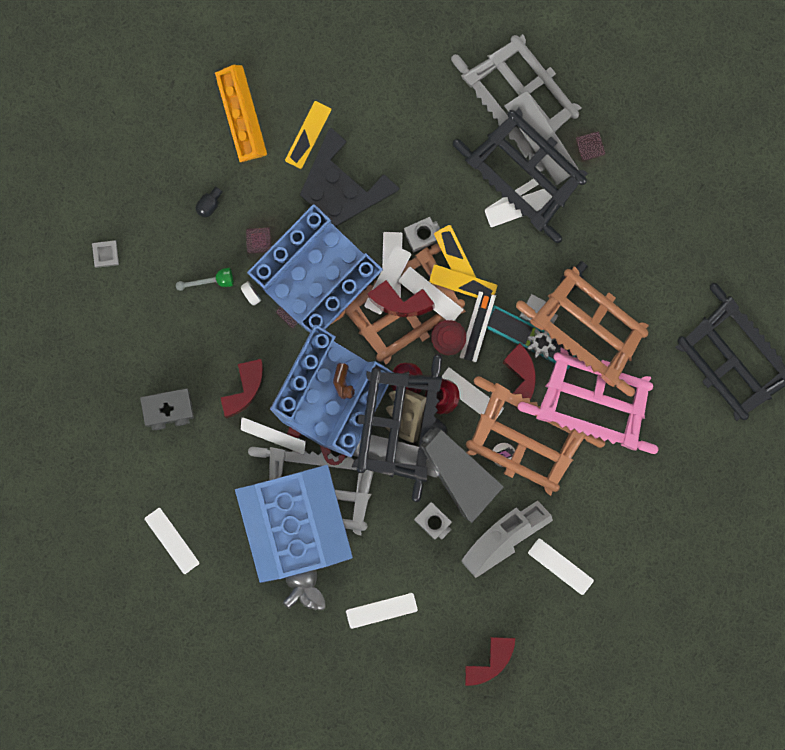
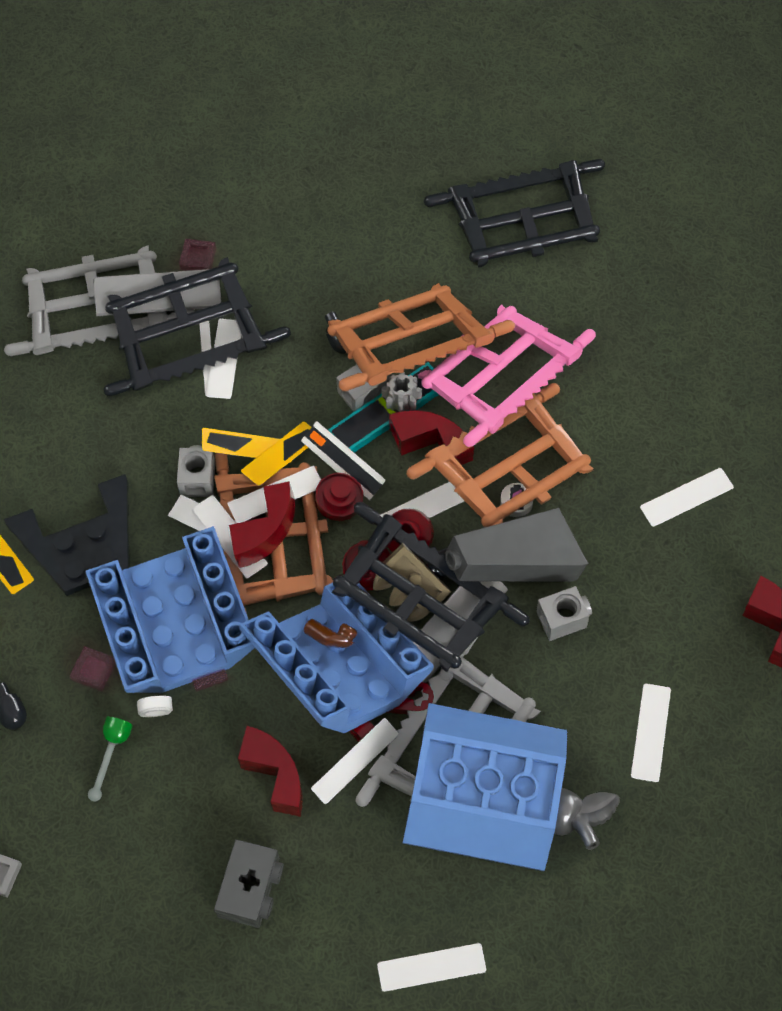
camera: 60 degrees left, 20 degrees down
(501, 538) = (623, 539): light grey slope -> none

